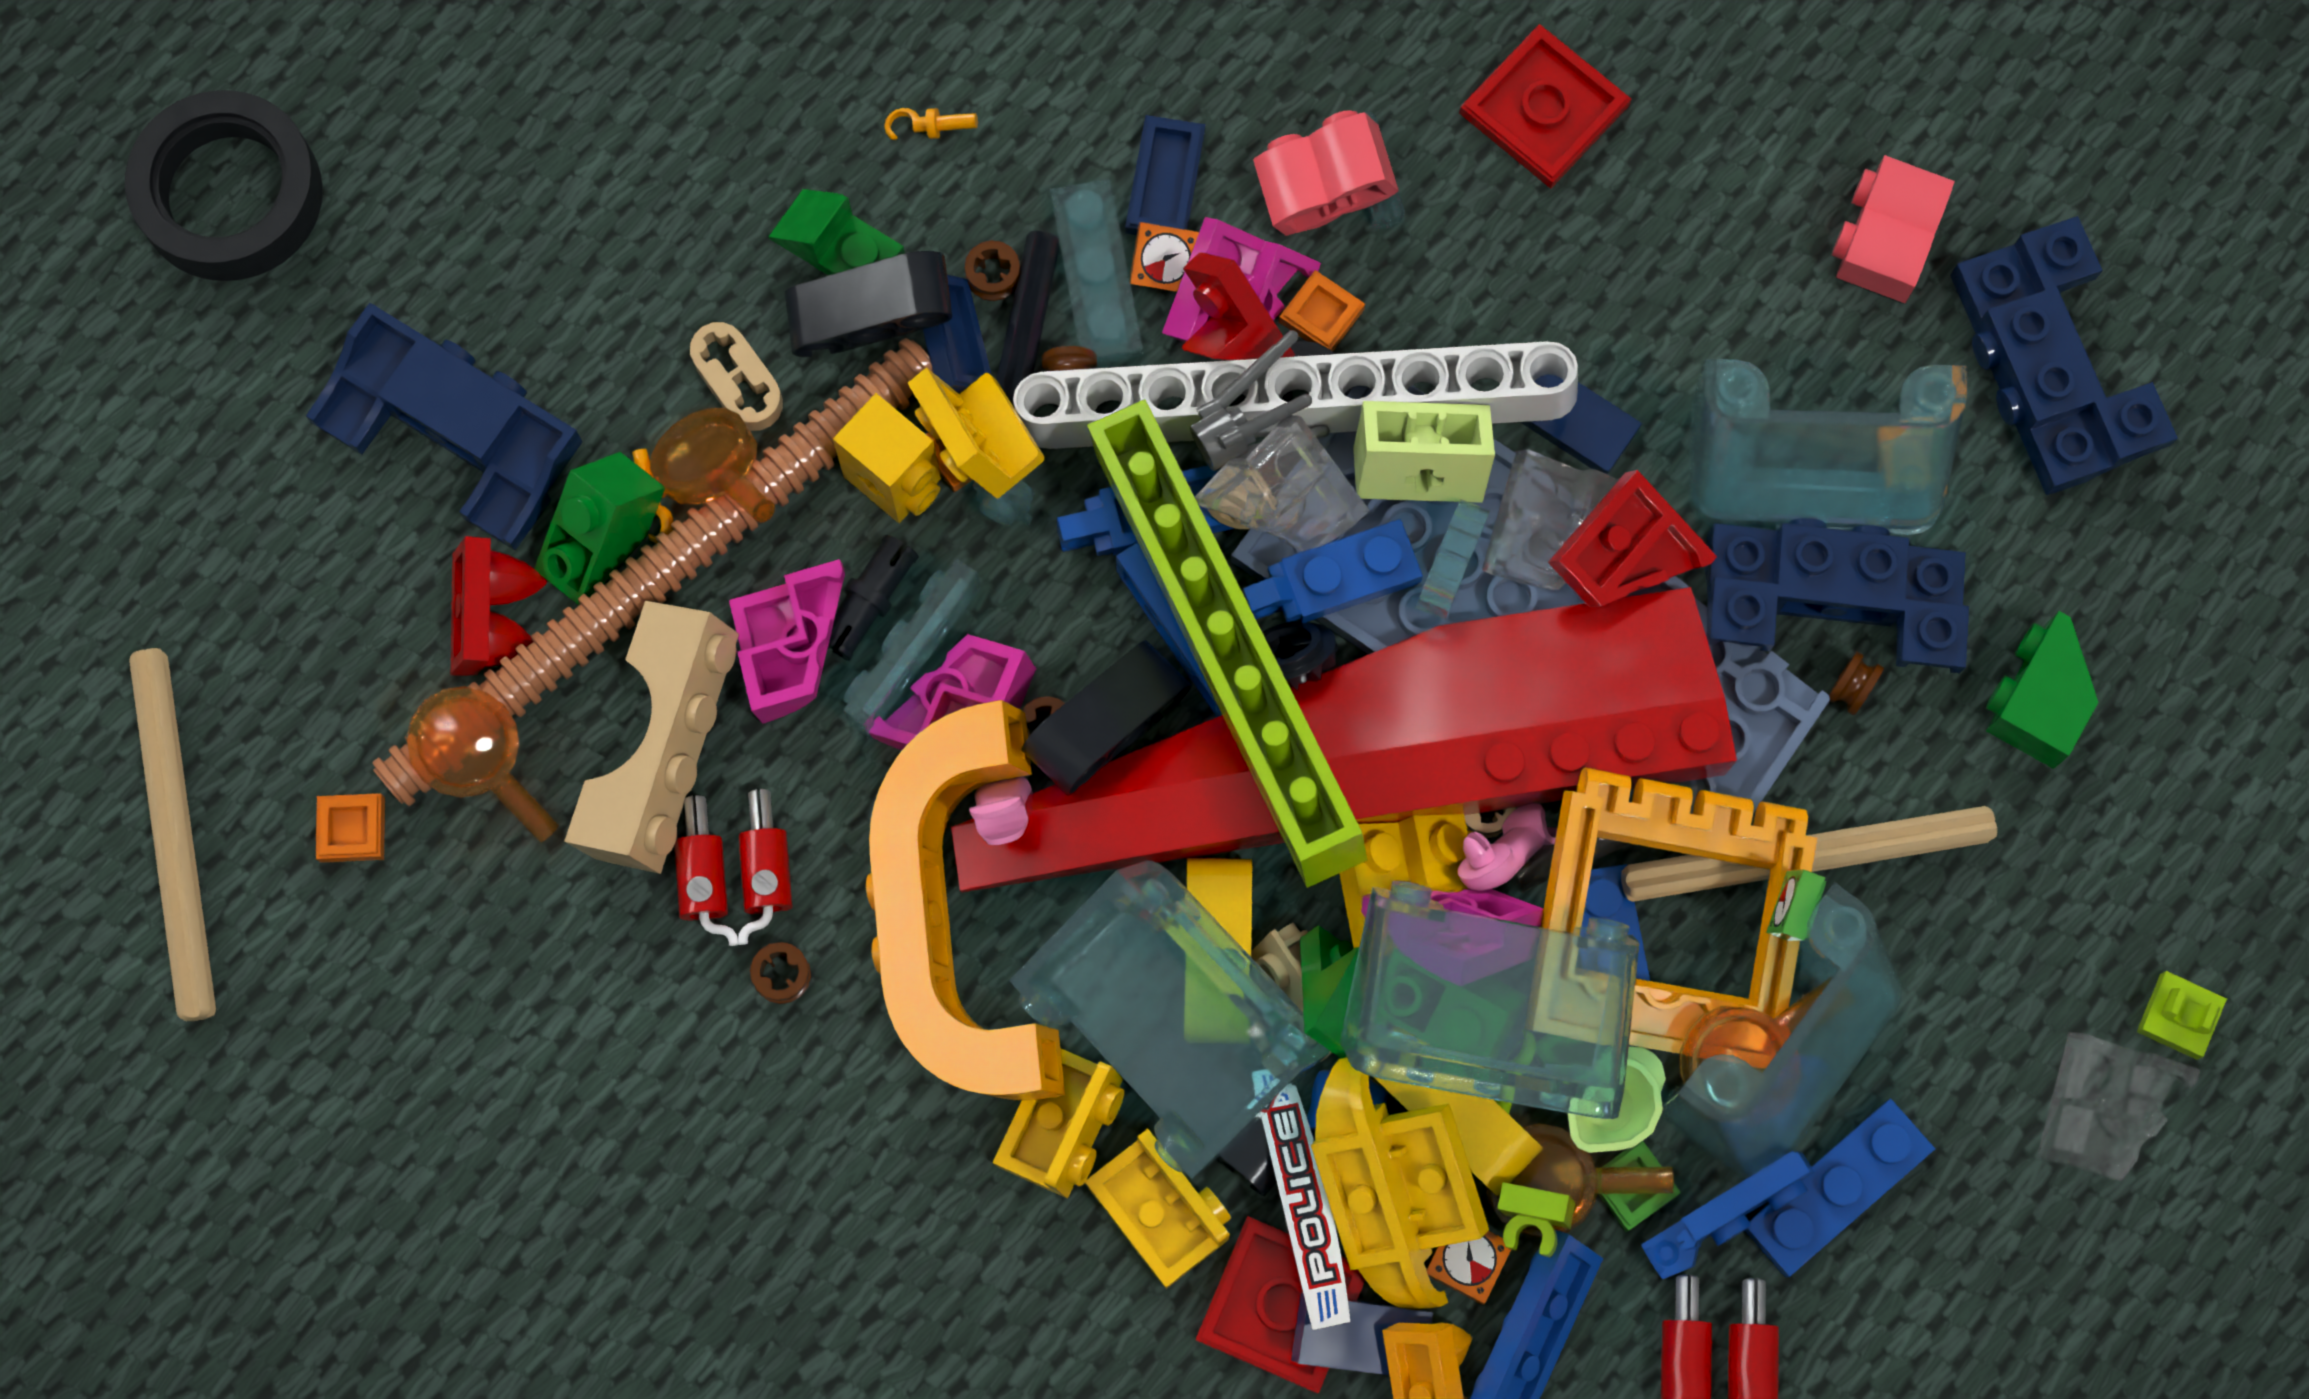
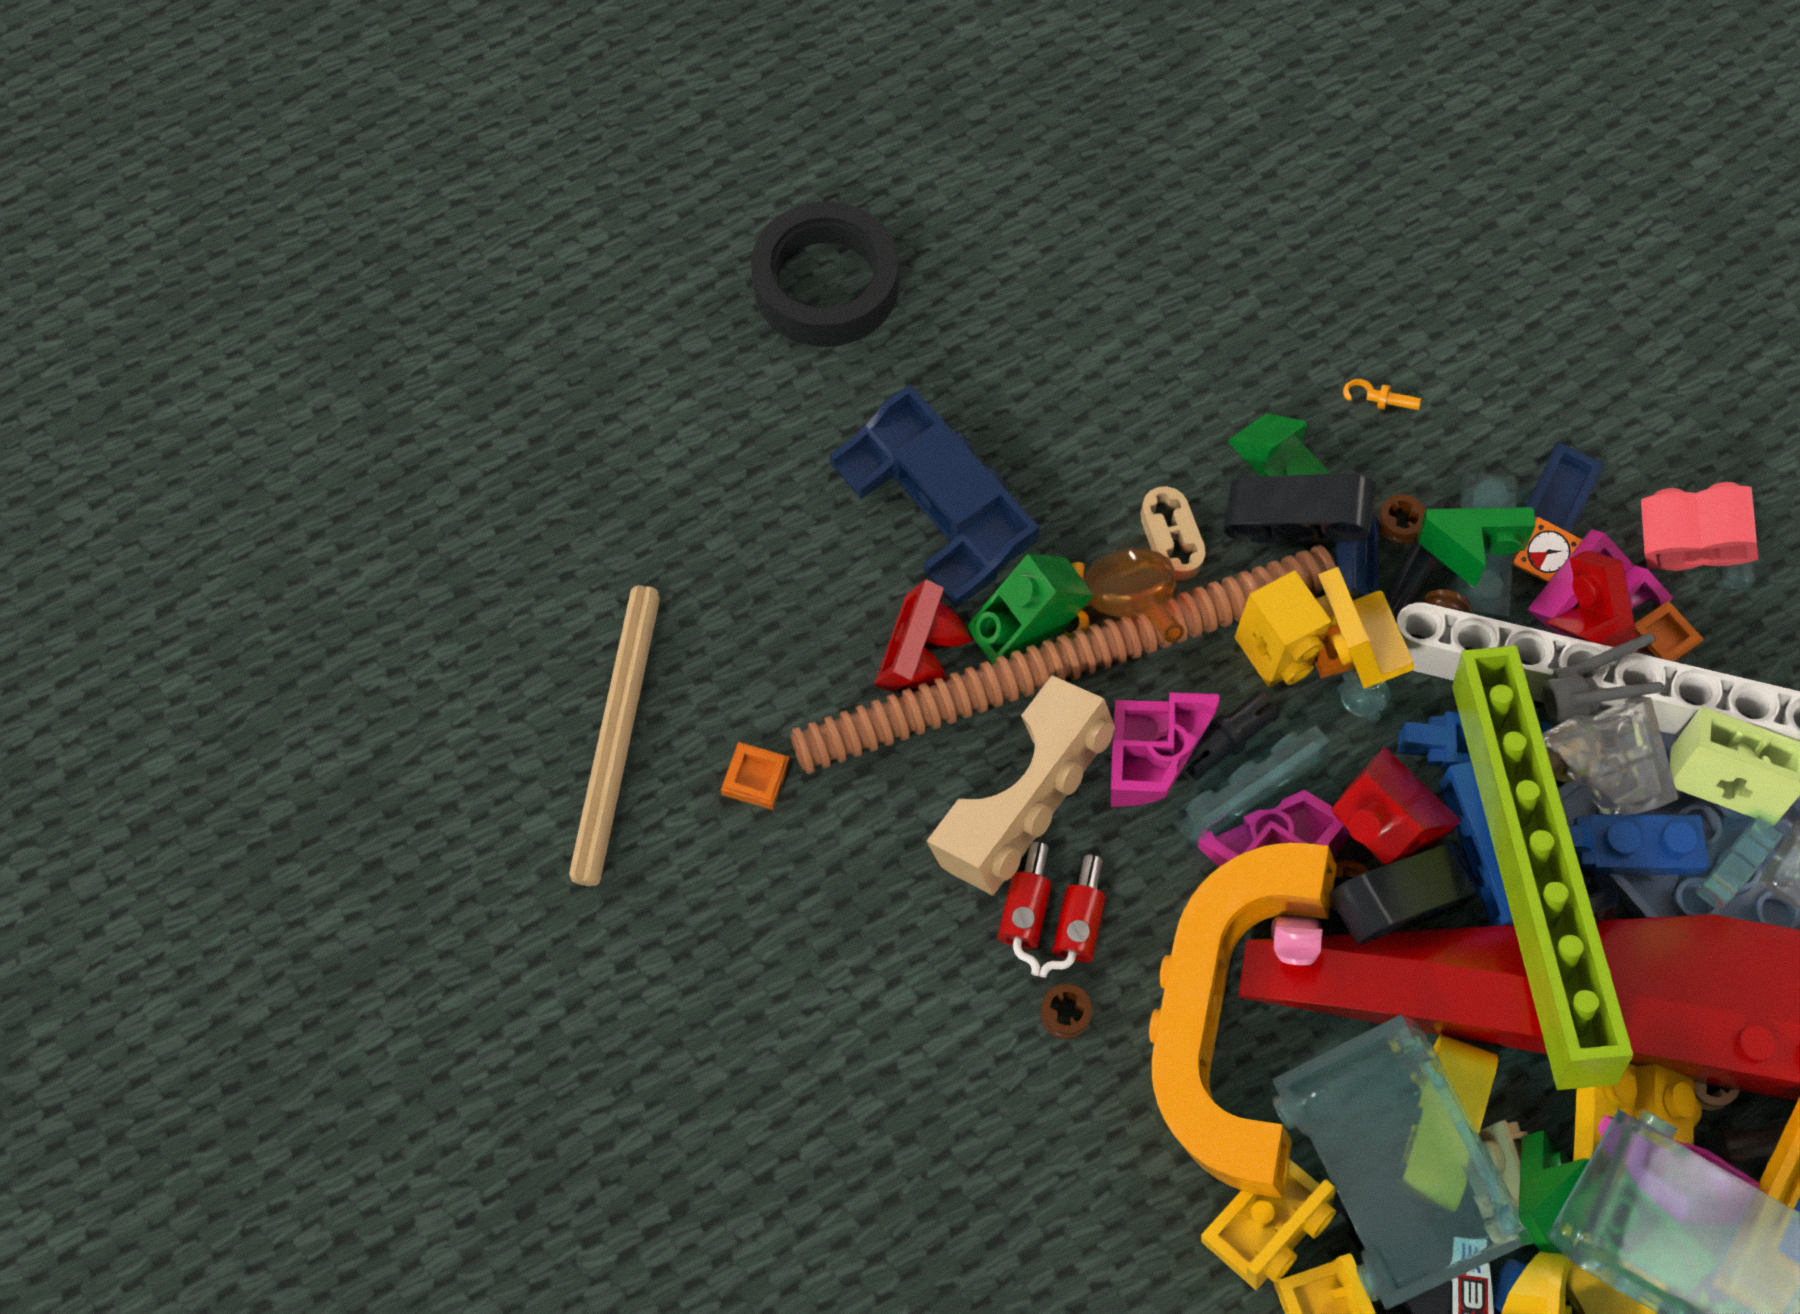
camera: 20 degrees right, 10 degrees down
(466, 746) = (872, 740): clear orange piece -> none
(1058, 274) = (1464, 534): none -> green slope
(1068, 628) = (1393, 811): none -> red torso
(1496, 863) = (1741, 1119): bright pink piece -> none

